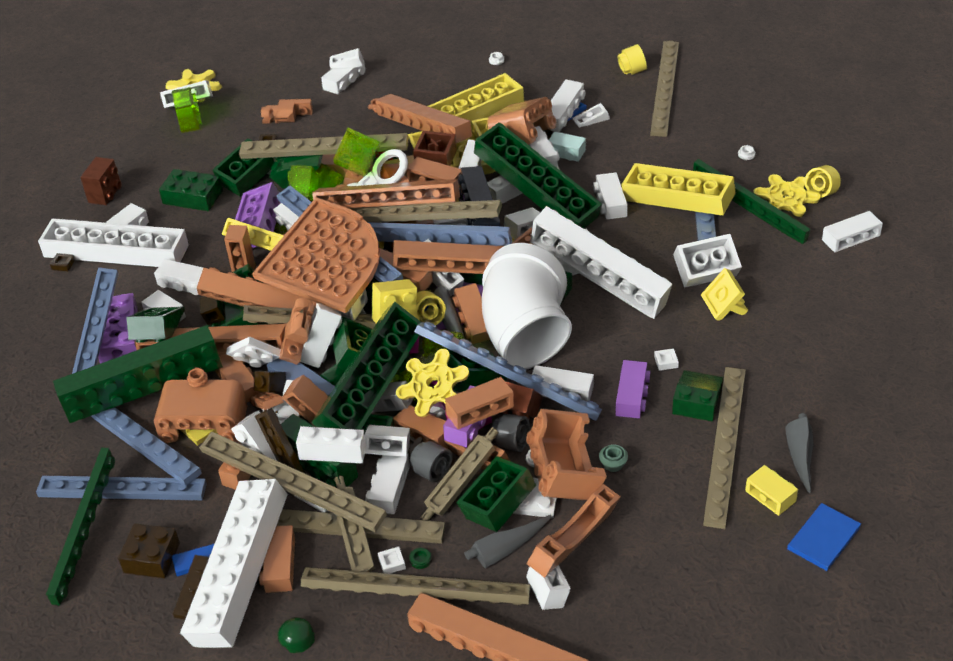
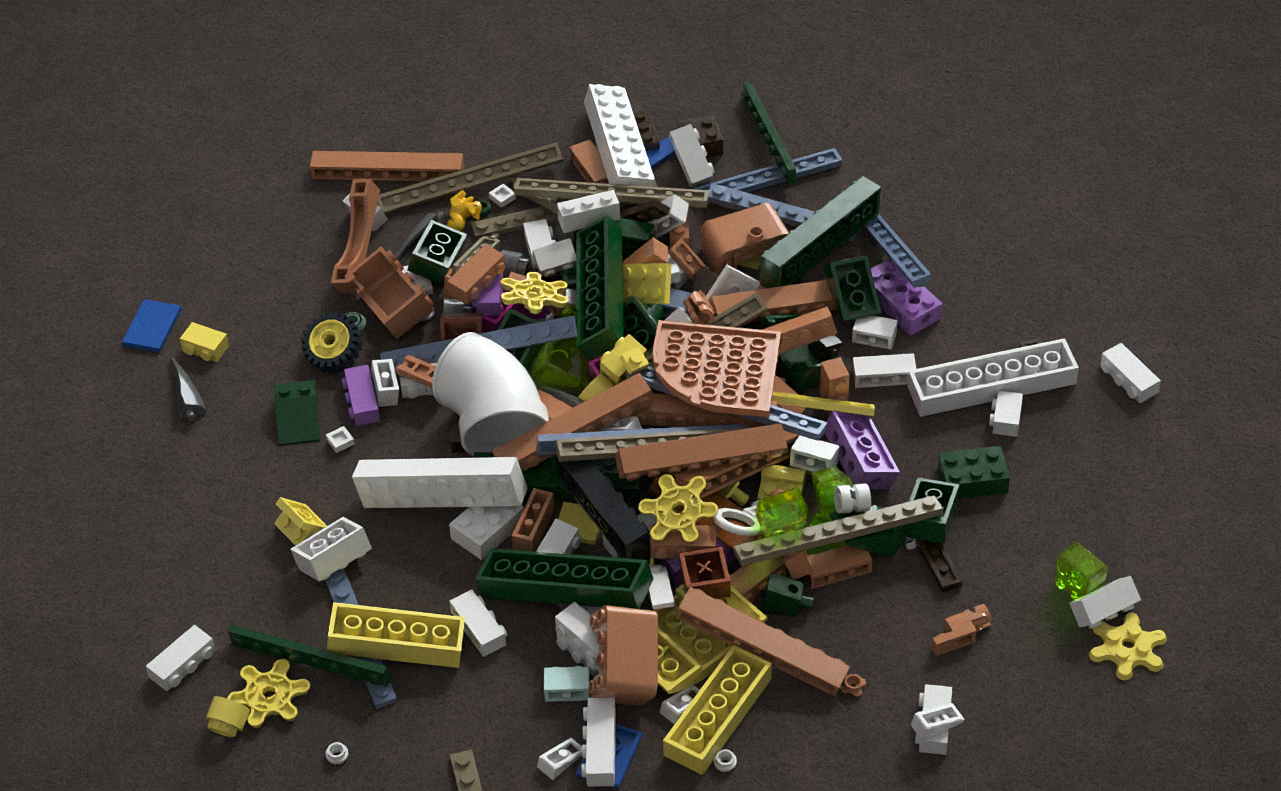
camera: 155 degrees right, 5 degrees up
(15, 223) = (1130, 373): none -> white brick
(101, 181) = (1080, 440): copper brick -> none
(179, 513) = (691, 155): none -> white brick
(293, 156) = (852, 498): none -> white wheel
(296, 635) = (545, 129): dark green hair -> none
(321, 369) = (648, 282): none -> light yellow plate
(389, 273) = (634, 361): none -> light yellow plate
(418, 168) = (673, 496): none -> light yellow plate
(444, 553) = (461, 209): none -> yellow animal
(570, 370) = (416, 370): none -> nougat plate
(606, 385) = (384, 382): none -> white brick
(642, 436) = (324, 330): none -> wheel
(724, 449) = (258, 380): dark tan plate -> none

